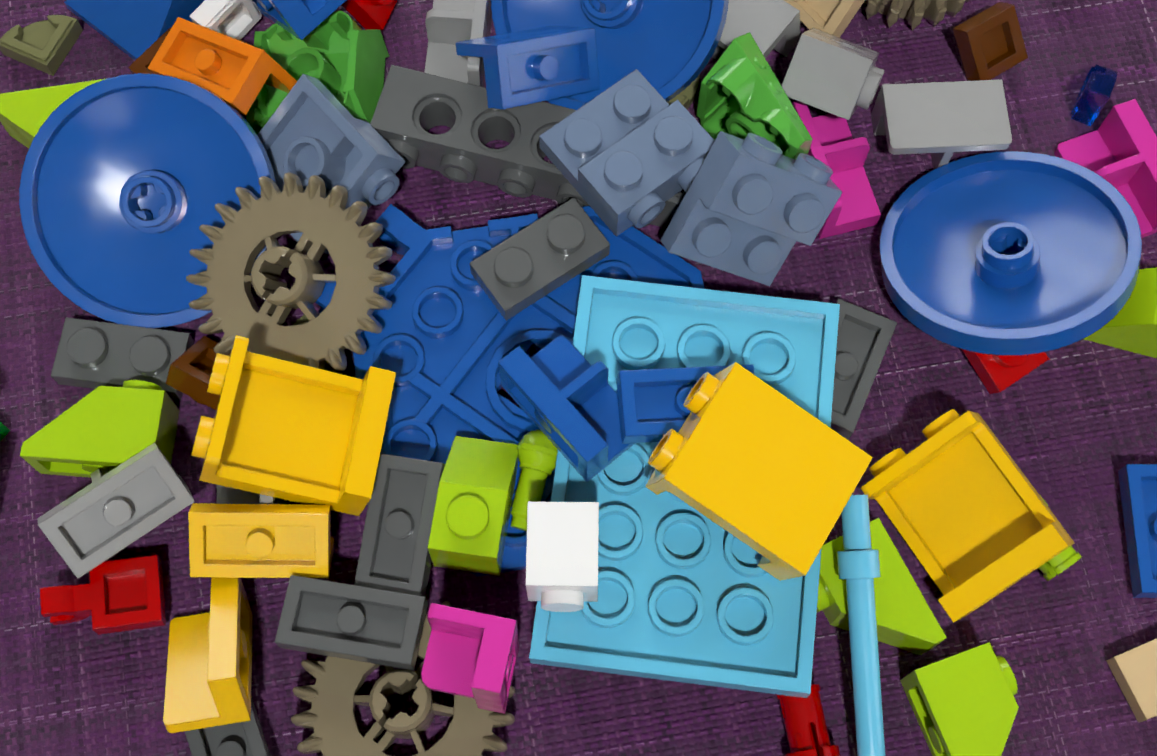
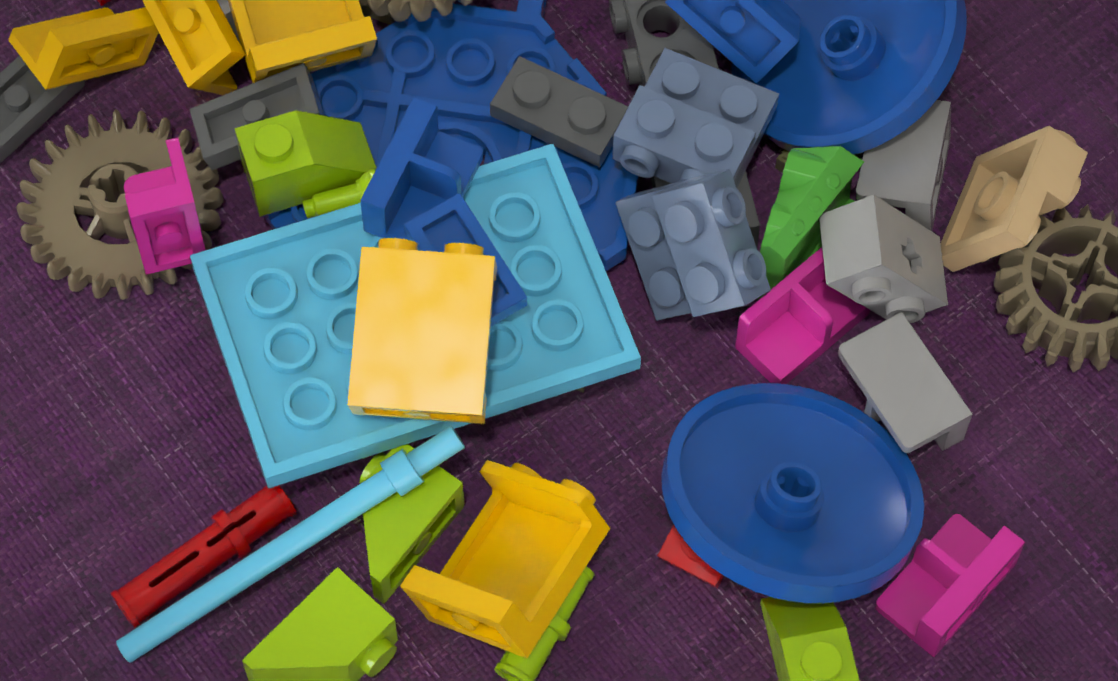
camera: 65 degrees right, 5 degrees down
(352, 622) = (157, 112): dark grey plate -> none
(562, 554) = (280, 229): white brick -> none
(859, 352) = (609, 414): dark grey plate -> none
(990, 42) = (1024, 401): reddish brown plate -> none
(1093, 94) = (1032, 522): clear blue tile -> none

